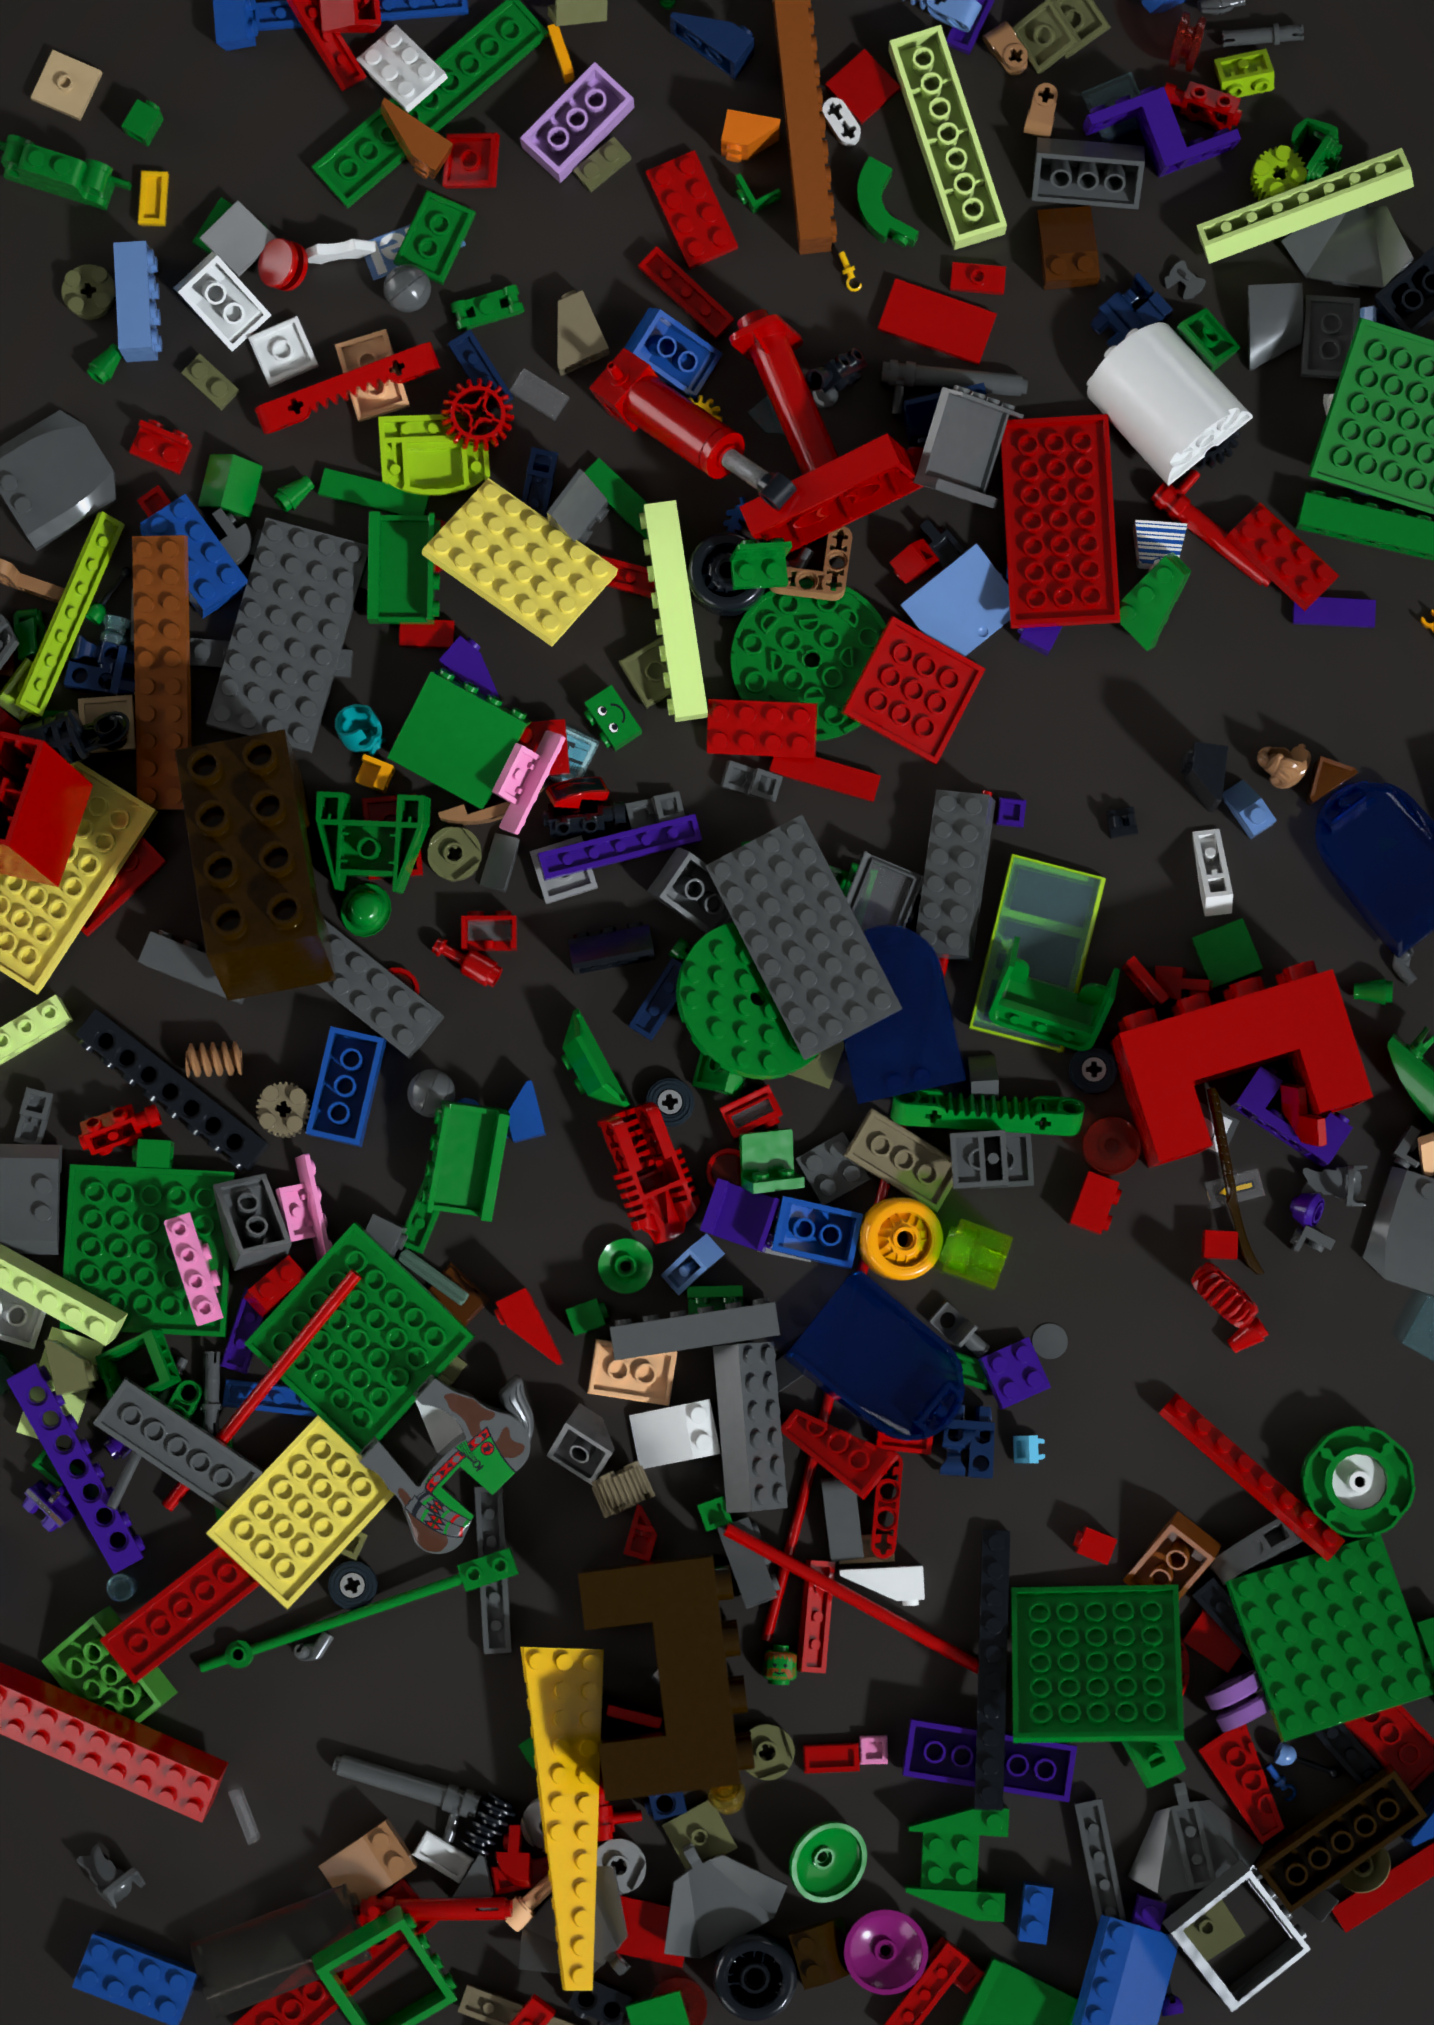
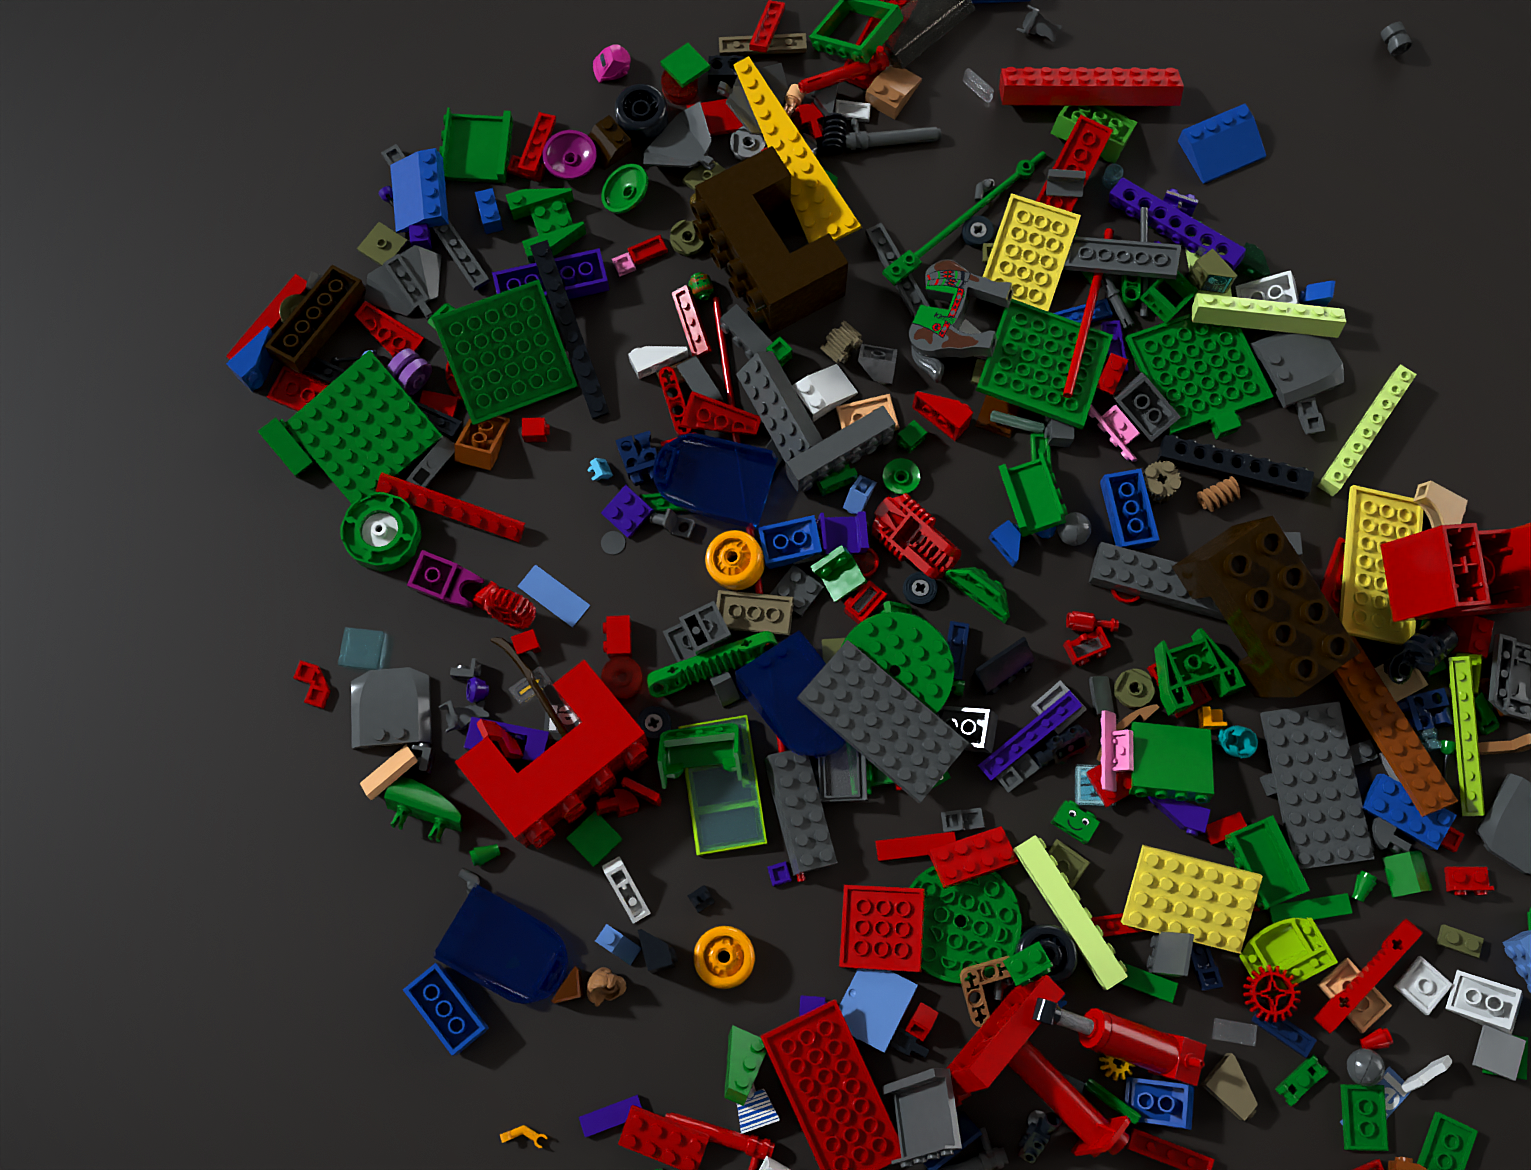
camera: 155 degrees right, 10 degrees down
(116, 1128) = (1256, 429): red brick -> none
(195, 1270) = (1166, 361): bright pink bracket -> none
(204, 1590) = (1065, 183): none -> dark grey panel
(283, 264) = (1459, 1046): red head -> none
(365, 910) = (1173, 629): green hat -> none
(374, 313) = (1378, 1039): none -> red cone
(571, 792) = (1079, 758): slope -> none
(634, 1716) = (782, 223): red tile -> none
(641, 1536) = (817, 325): red slope -> none
(726, 377) = (1112, 1101): none -> green axle
(851, 1597) = (675, 337): red piece -> none
(974, 1254) = (682, 567): clear neon green brick -> none
(1119, 757) = (726, 974): none -> light orange wheel
(1157, 1300) = (553, 595): none -> medium blue sticker
(1266, 1969) = (341, 227): dark grey window -> none
(1279, 1781) = (367, 342): blue hand -> none
(1294, 1367) = (447, 585): none -> magenta brick

